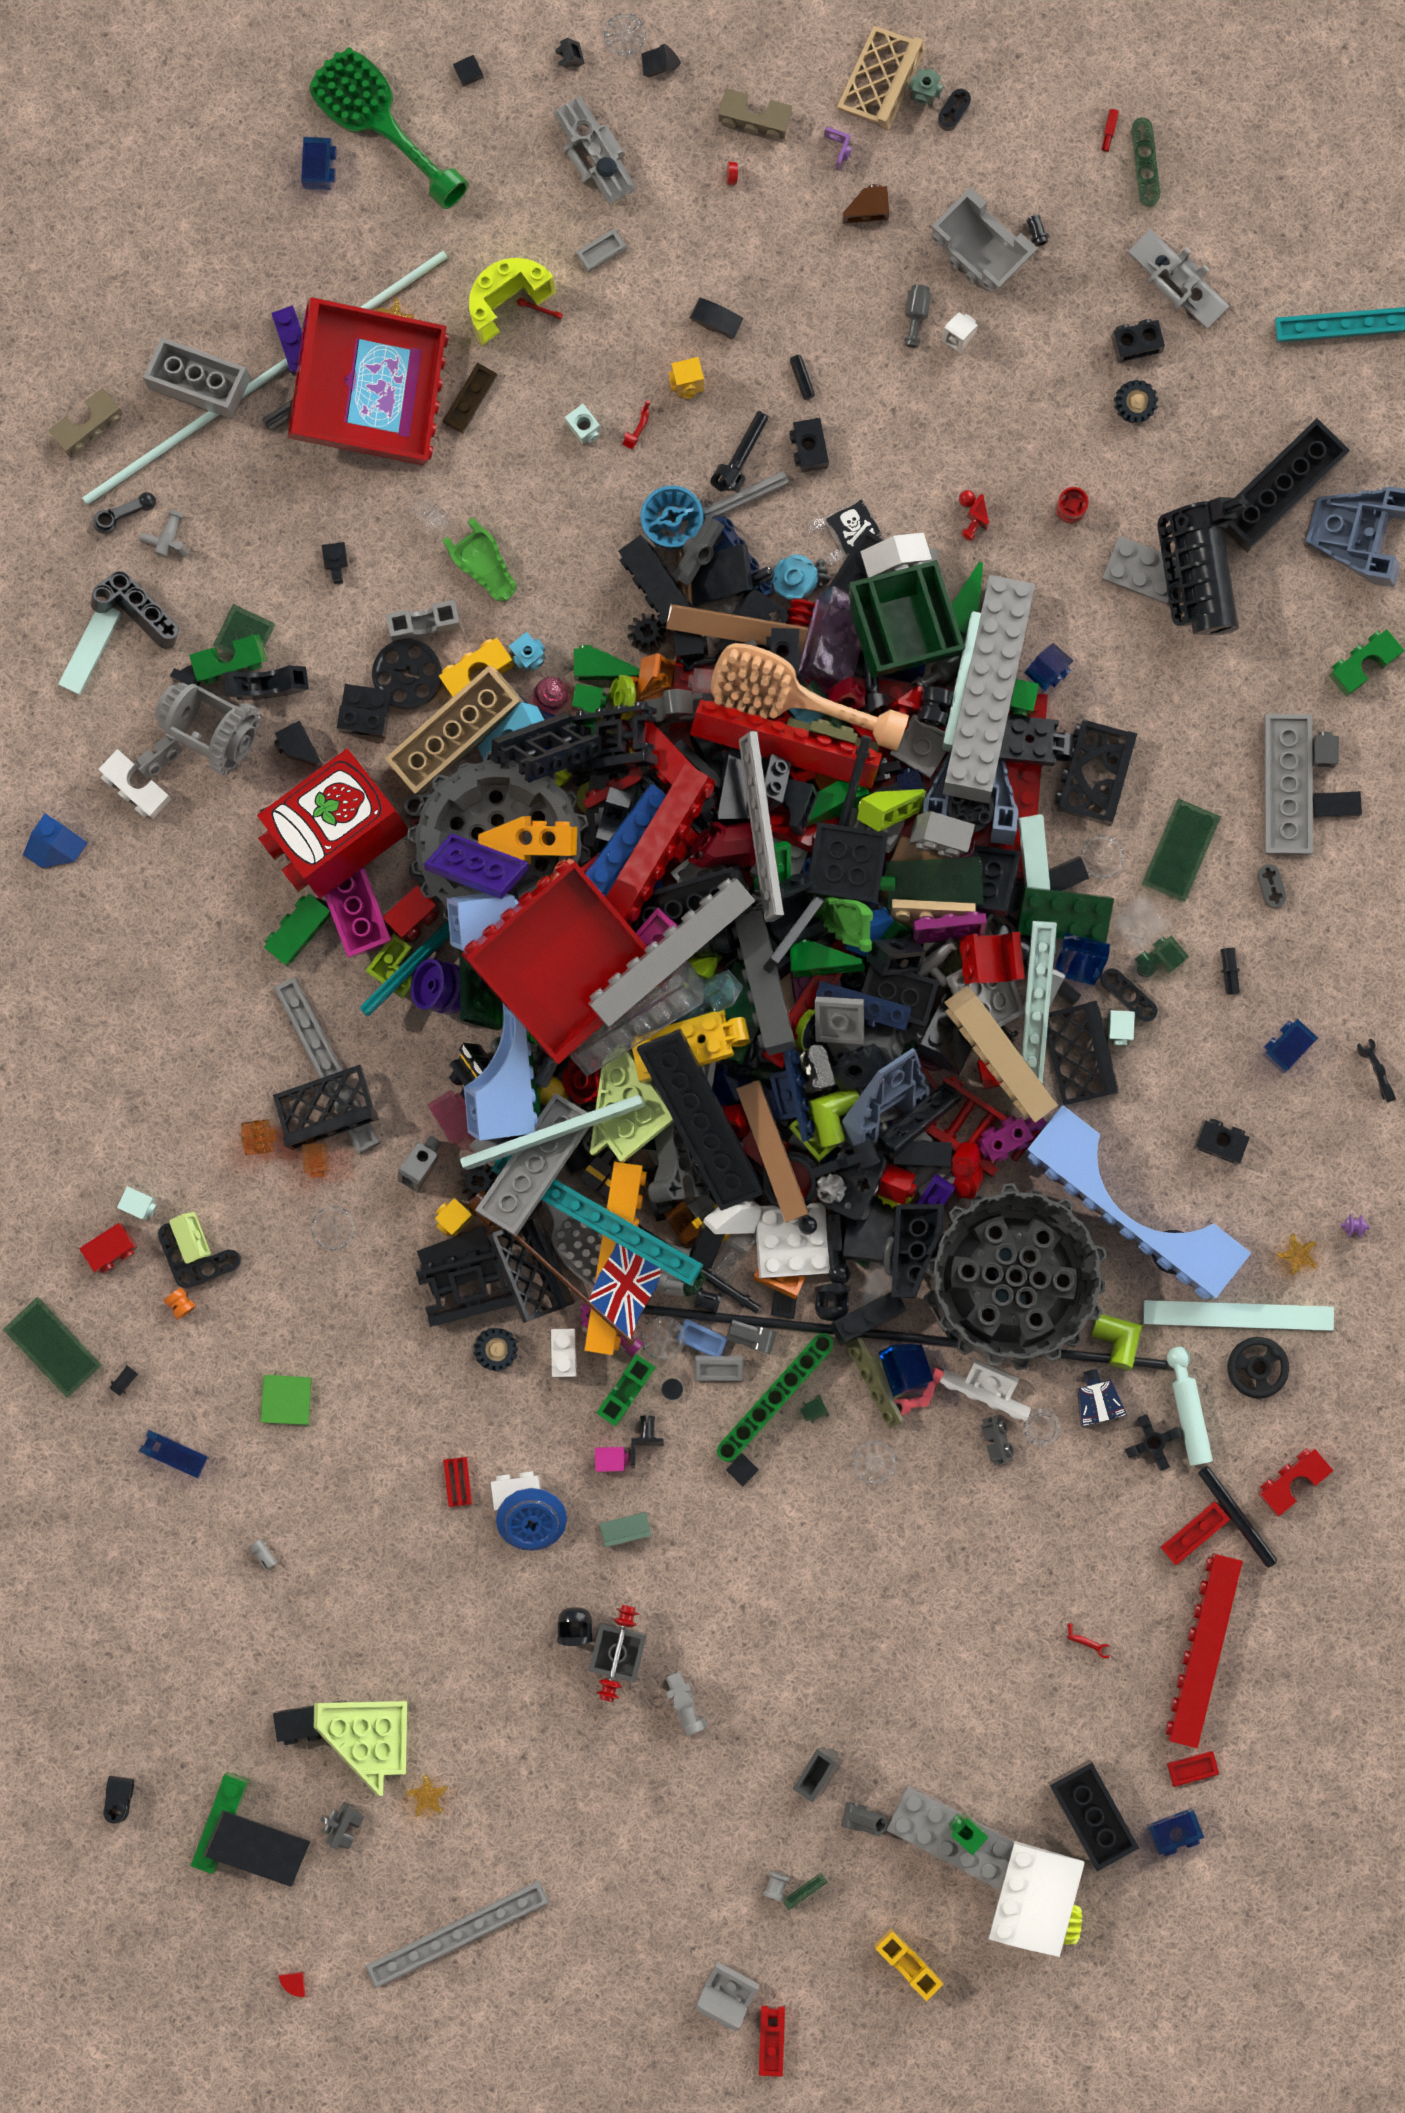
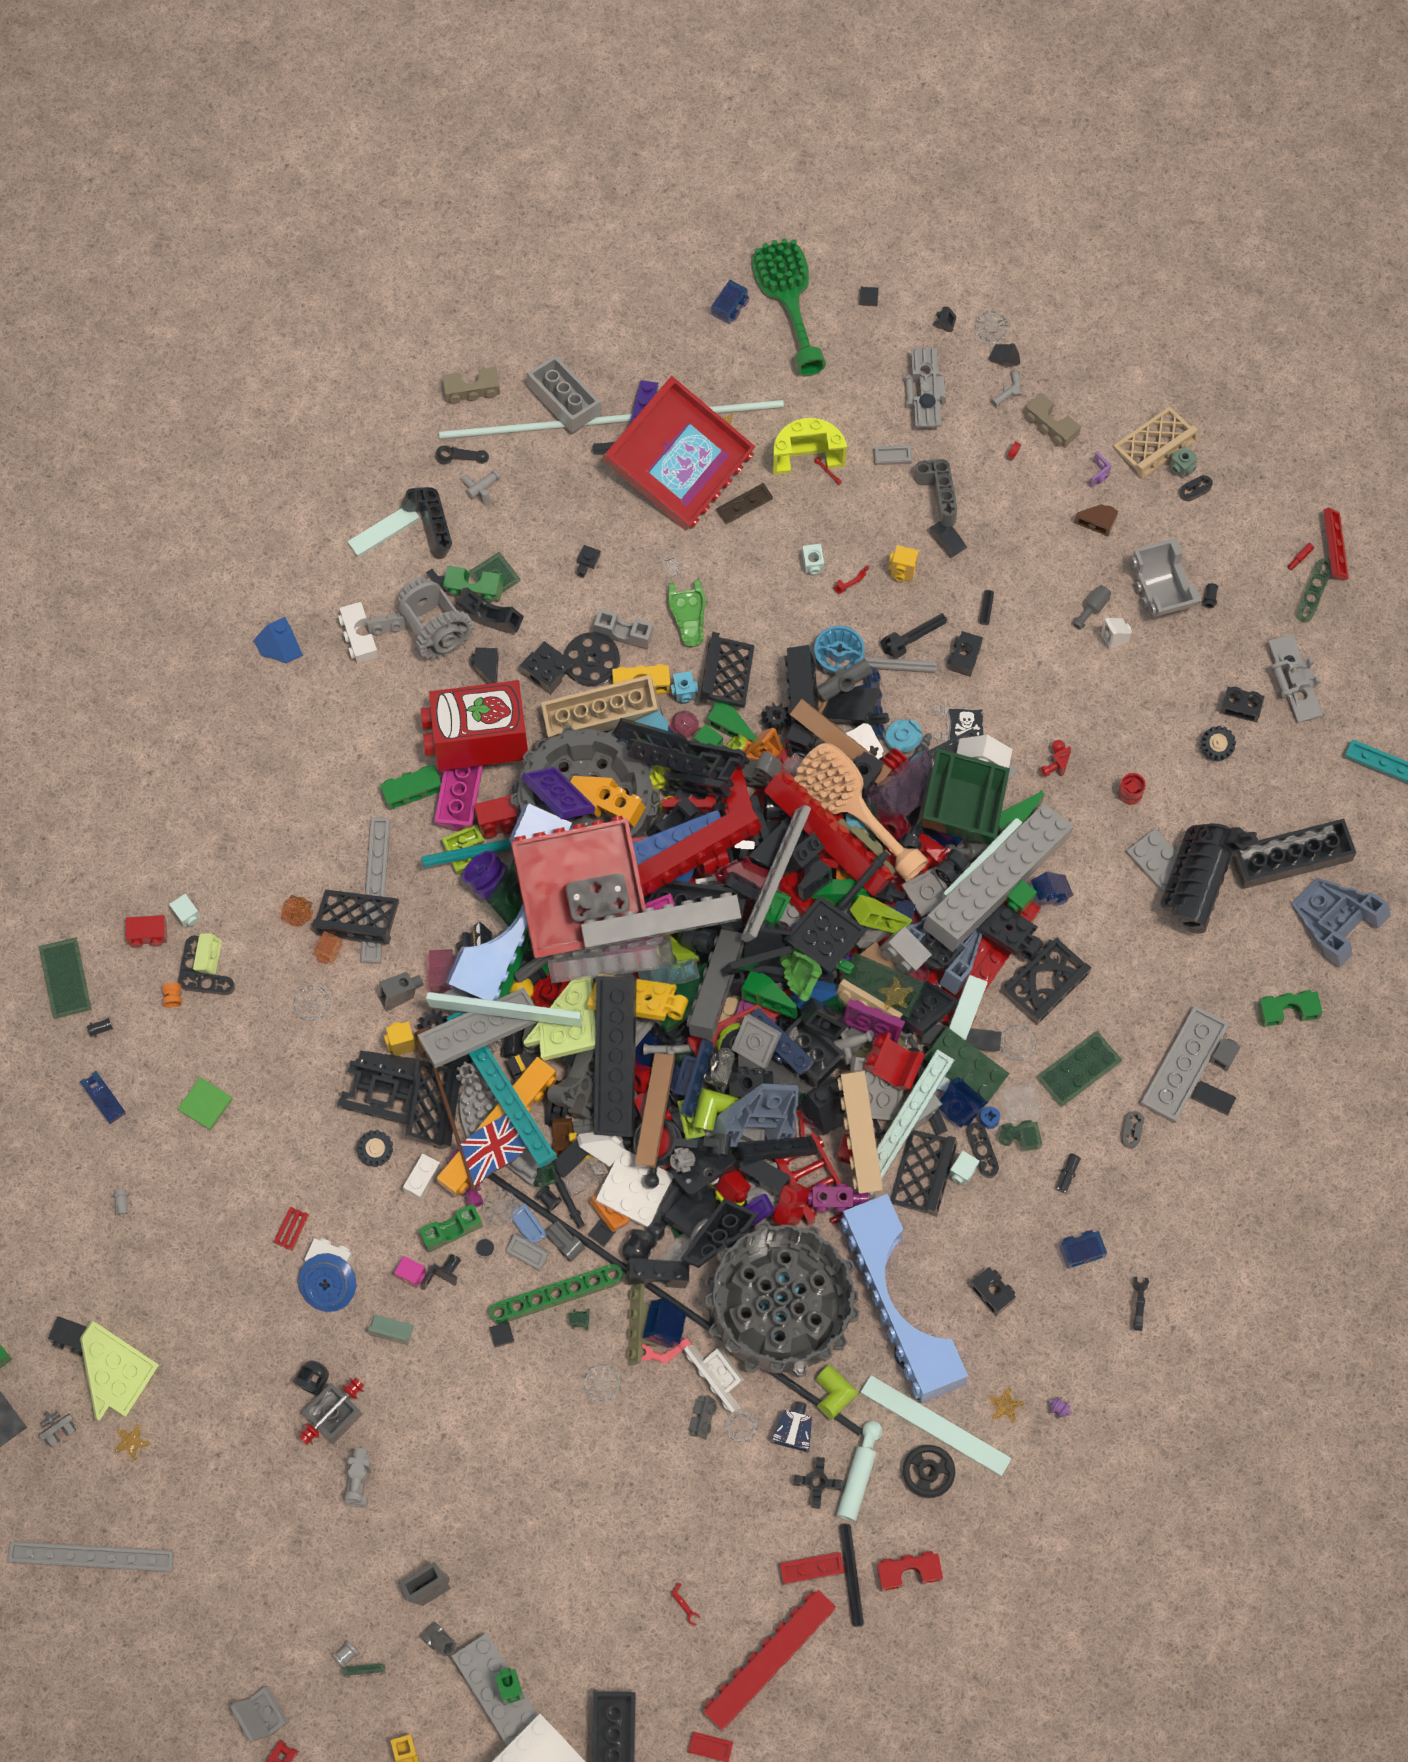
camera: 25 degrees right, 15 degrees down
(544, 614) = (711, 671): none -> black fence
(553, 1221) = (470, 1078): none -> light grey gear
(595, 969) = (598, 903): none -> axle
(682, 268) = (939, 473): none -> dark grey beam
(687, 102) = (1008, 391): none -> light grey piece
(733, 860) = (742, 885): none -> black beam
(751, 1076) = (669, 1049): none -> light grey piece
(958, 887) = (896, 994): none -> clear yellow animal
(1114, 959) = (990, 1122): none -> blue wheel
(1141, 94) = (1336, 544): none -> red tile

